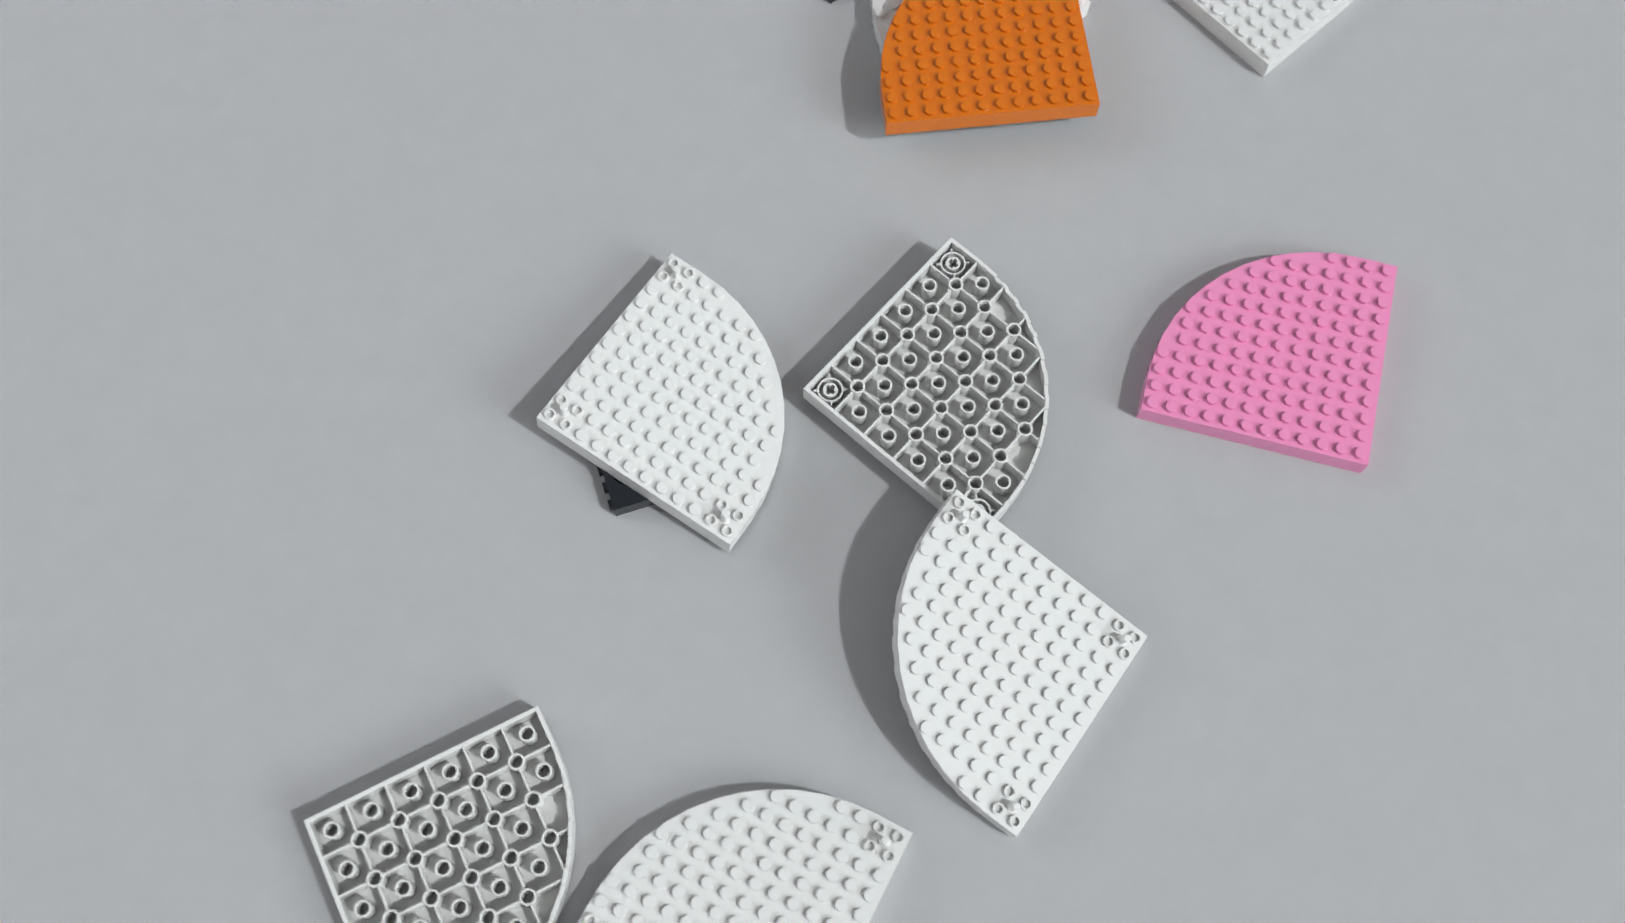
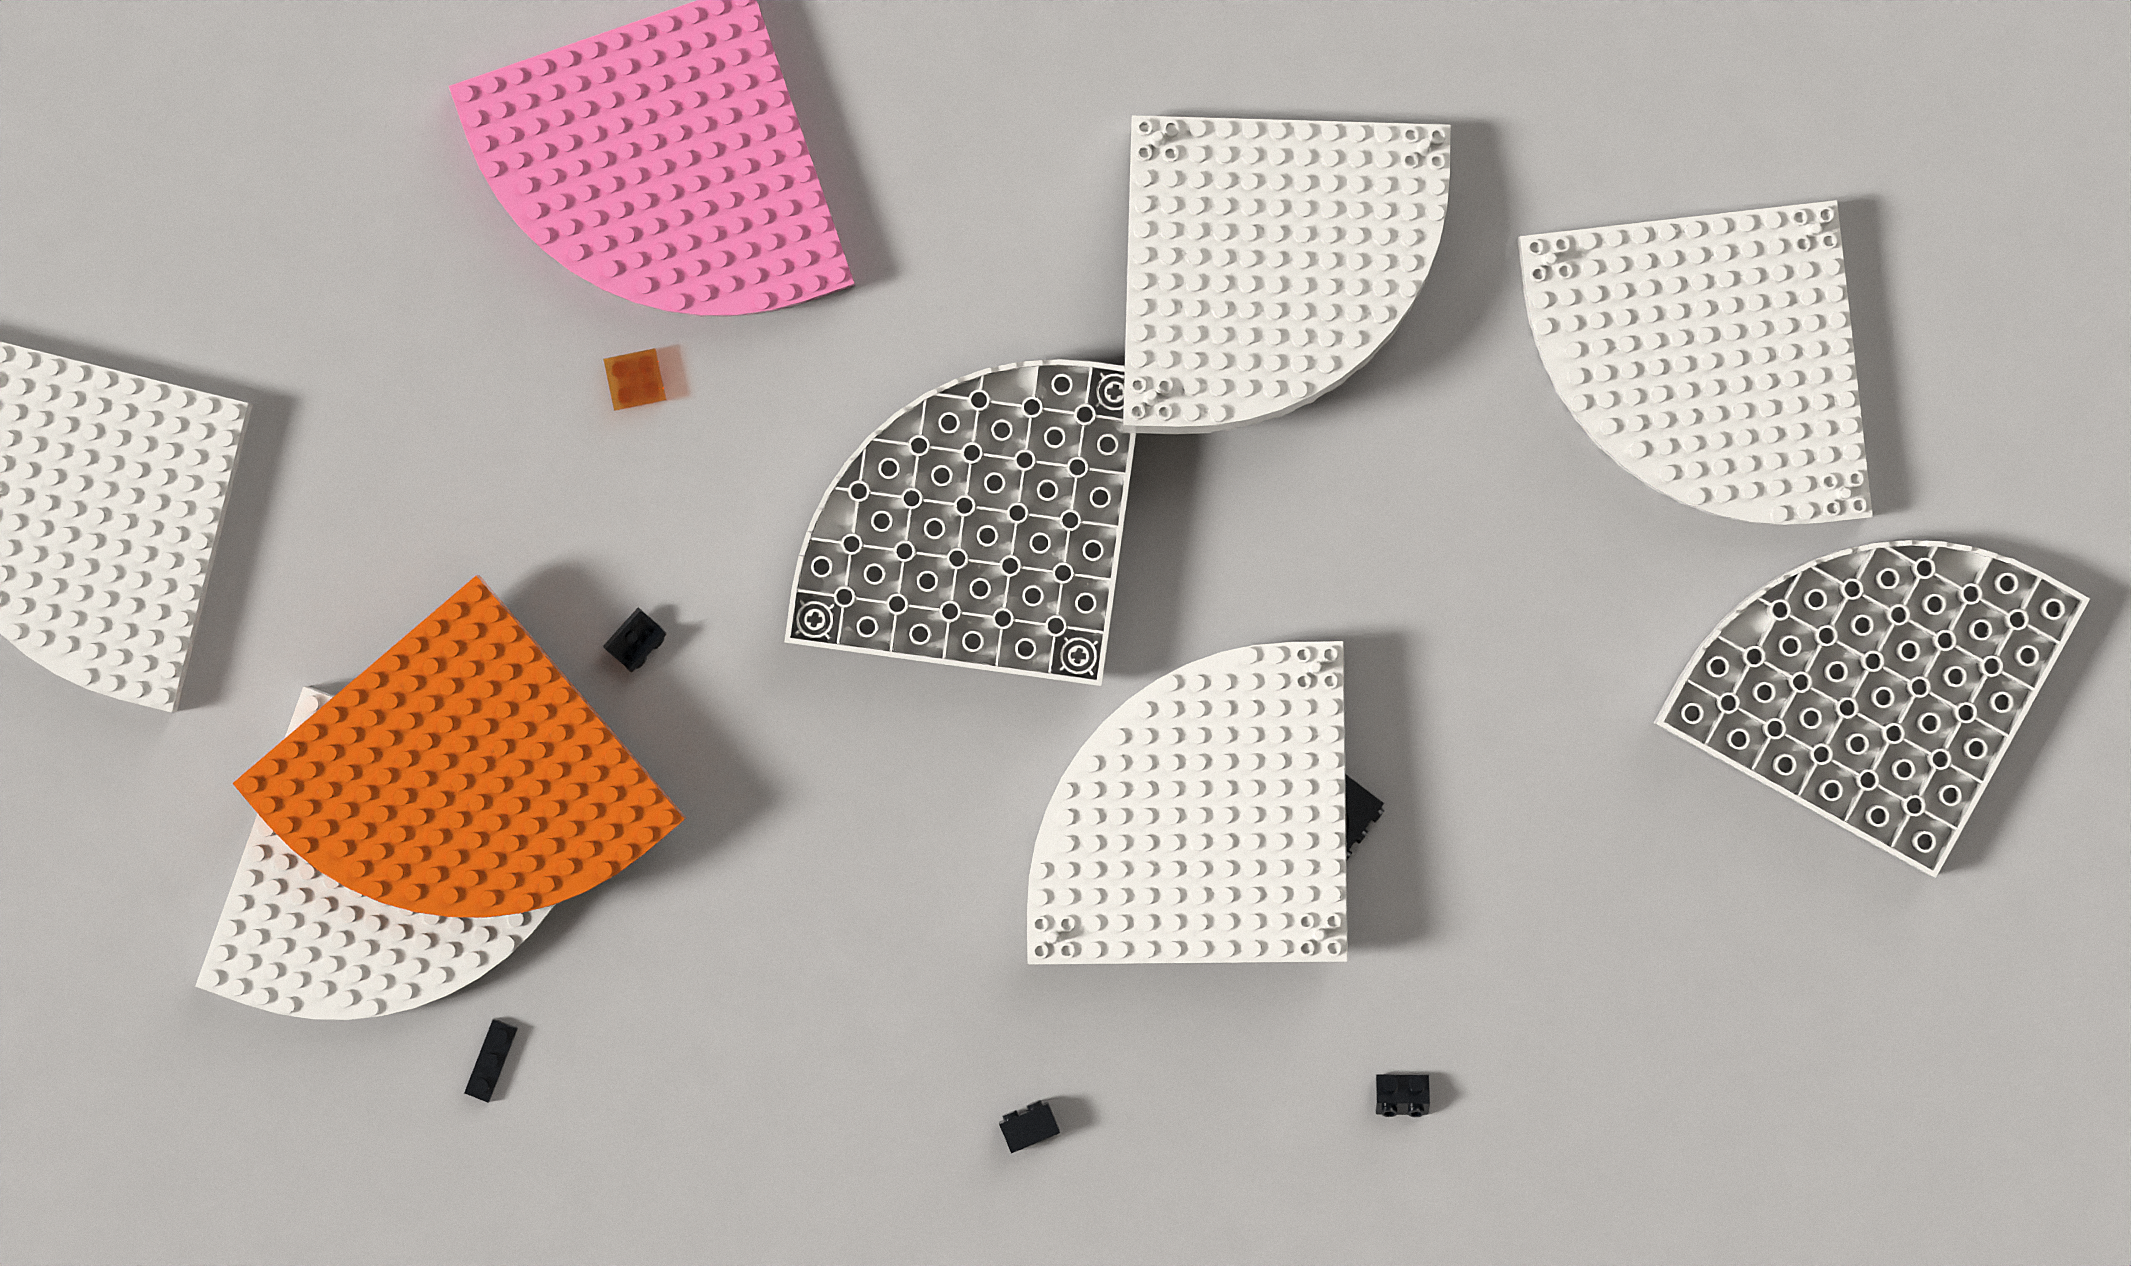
camera: 120 degrees left, 20 degrees up
(438, 413) = (1402, 1095): none -> black bracket
(581, 206) = (1029, 1126): none -> black brick
(1004, 176) = (635, 640): none -> black bracket
(1155, 265) = (635, 379): none -> clear orange plate

